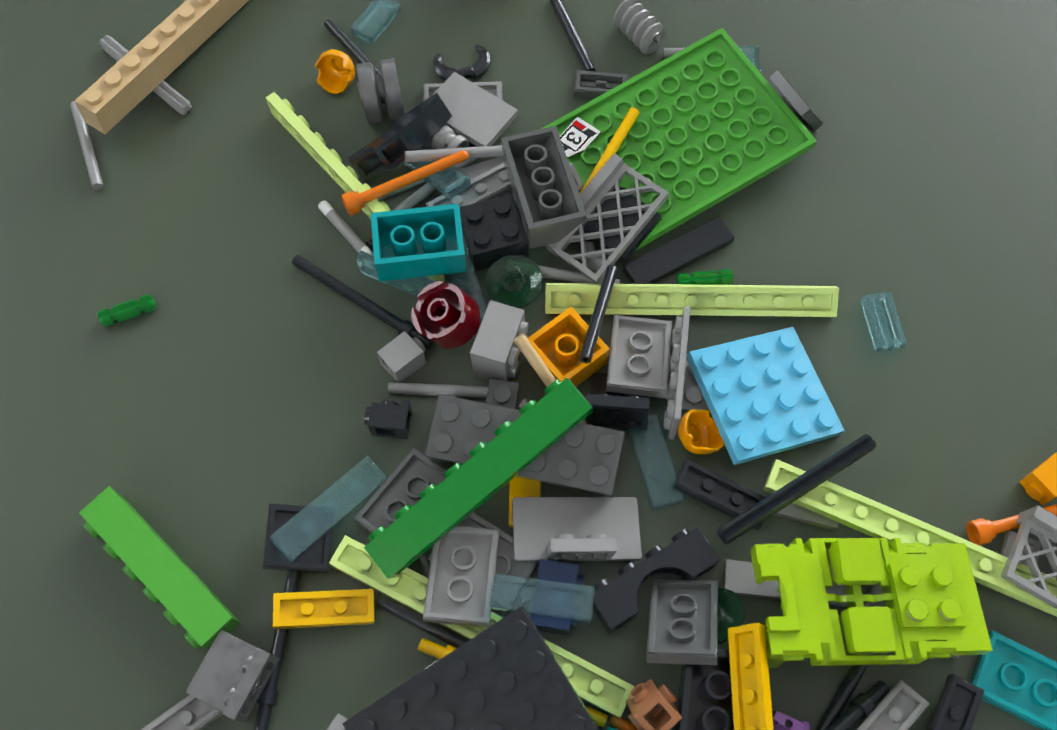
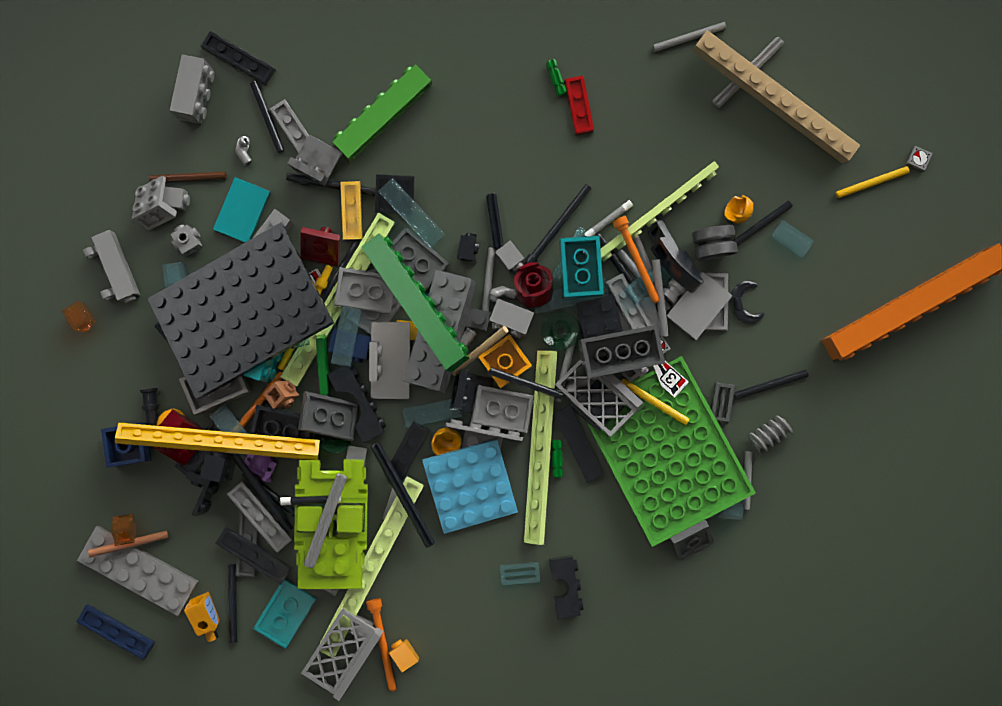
camera: 90 degrees right, 20 degrees up
(173, 277) = (579, 105): none -> red tile
(346, 384) = (495, 220): none -> black axle
(384, 655) = (320, 246): none -> dark red tile
(457, 368) = (501, 291): none -> light grey arm
(595, 638) = (322, 359): none -> green tile
(838, 631) = (305, 500): none -> black bar
(872, 598) = (325, 520): none -> light grey axle
(913, 250) = (567, 604): none -> black arch

